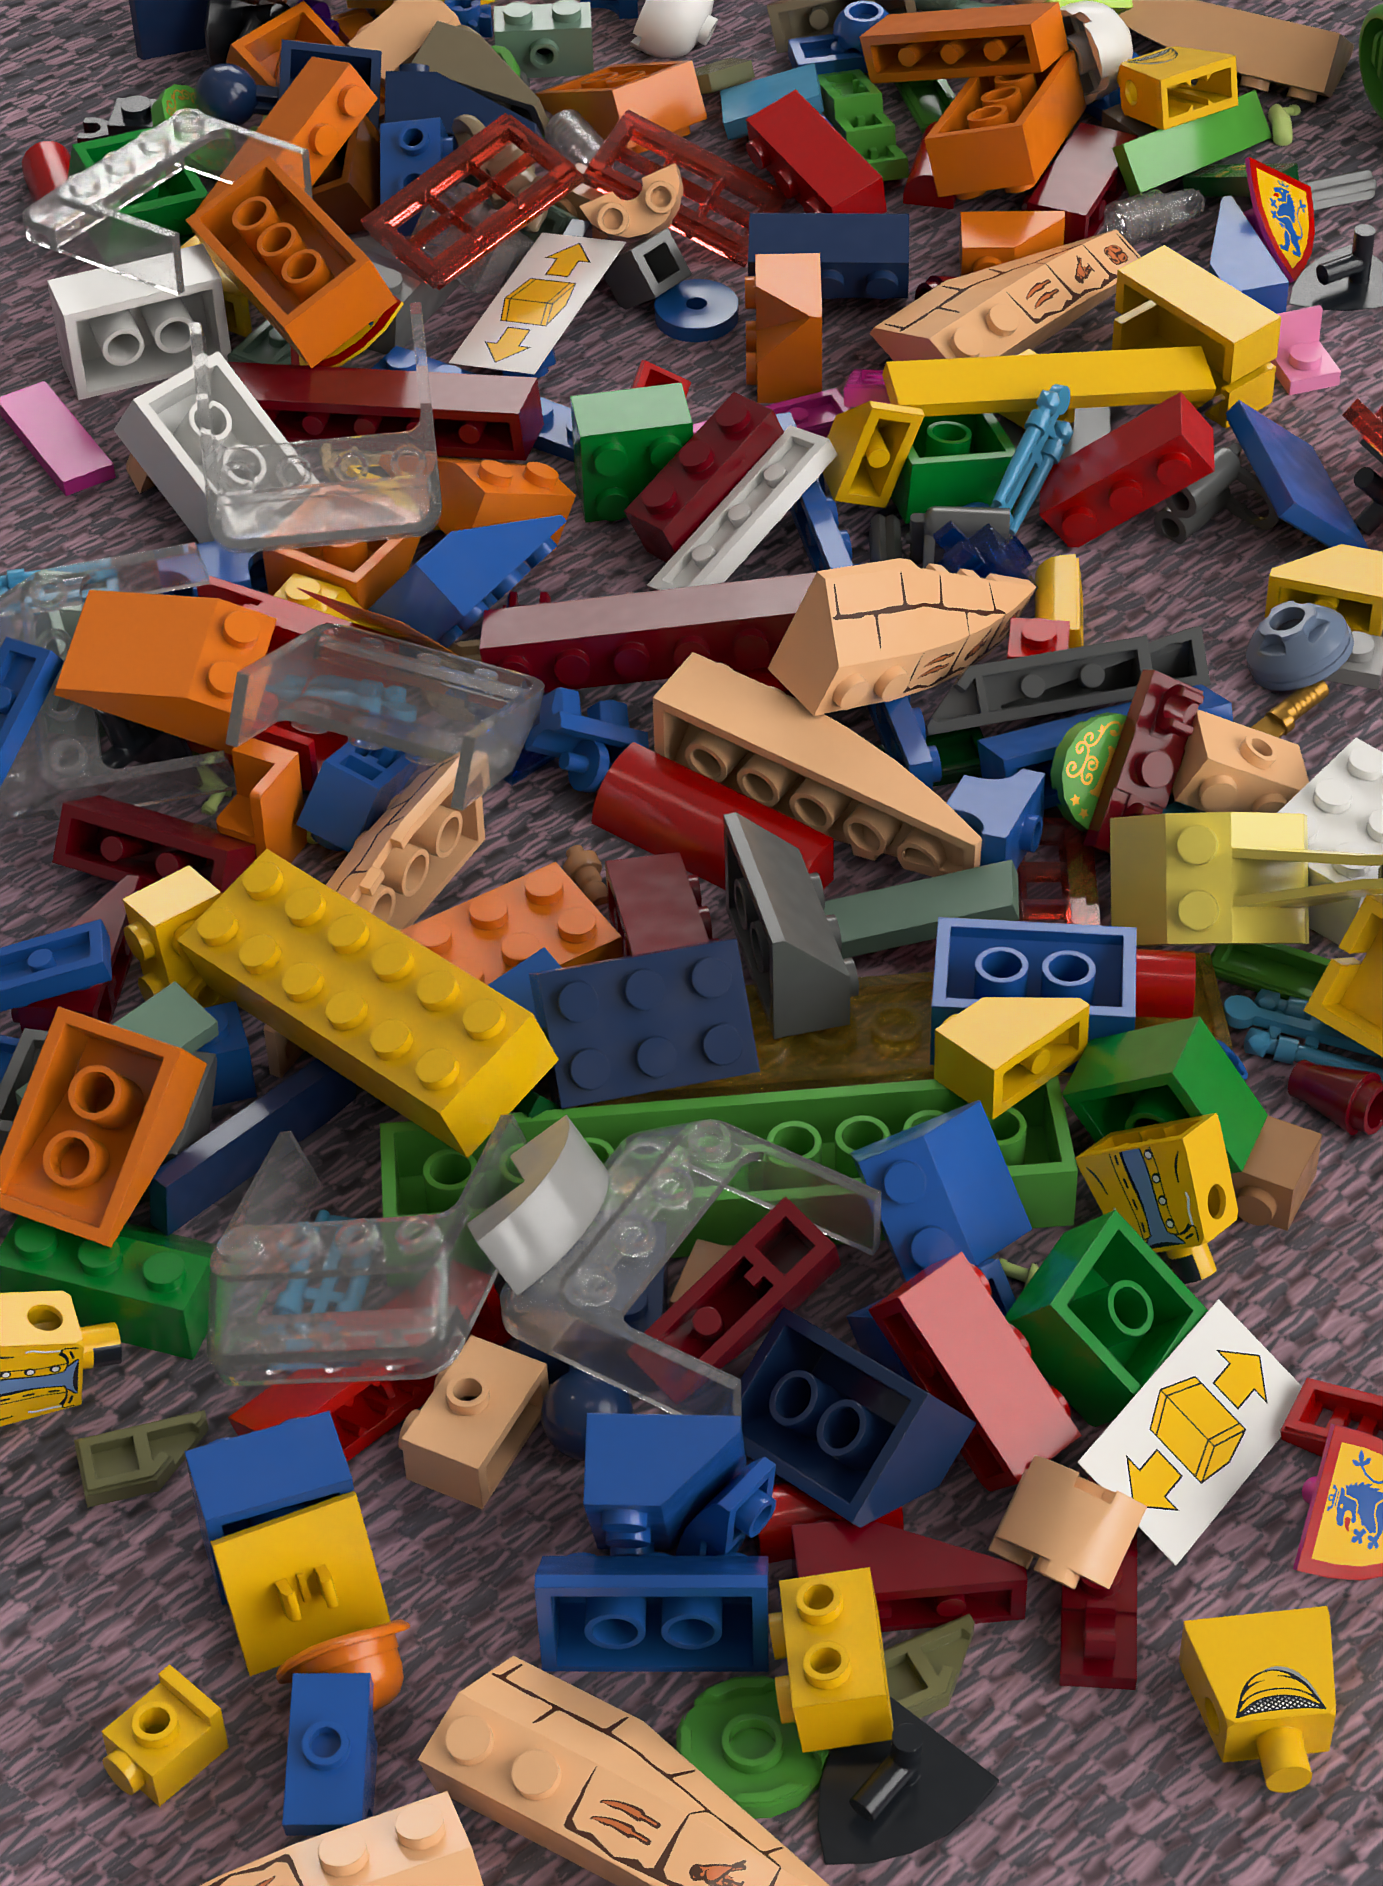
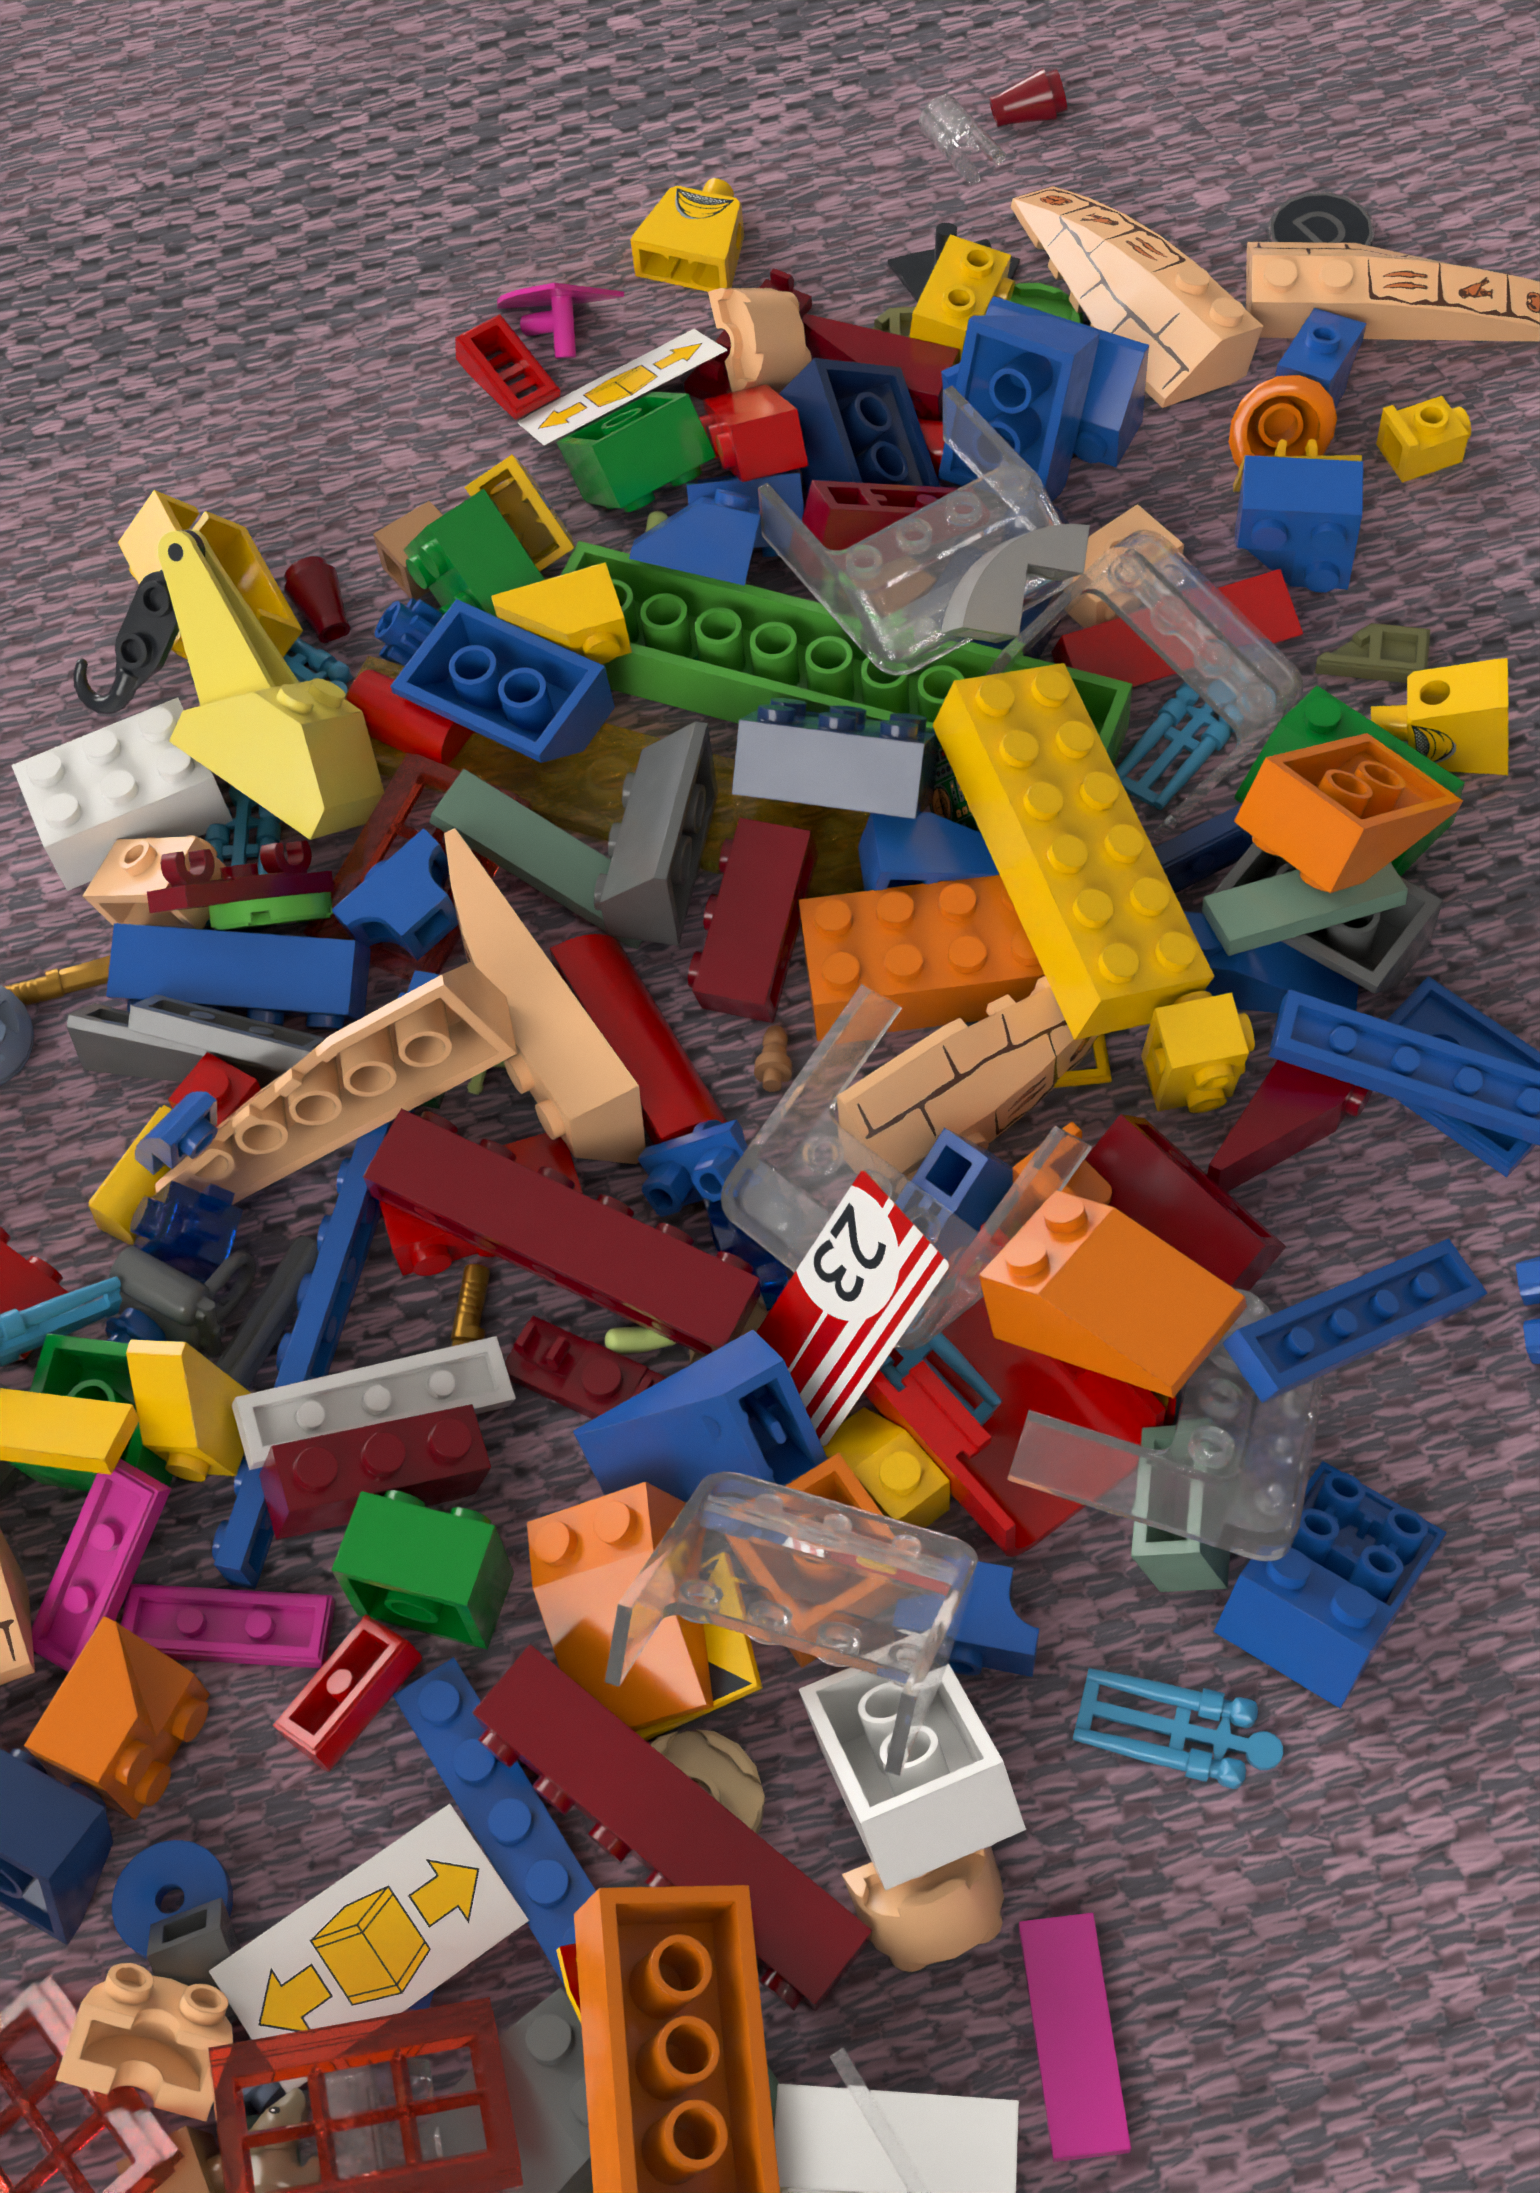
camera: 150 degrees left, 15 degrees up
(1023, 565) = (182, 1132): none -> blue slope

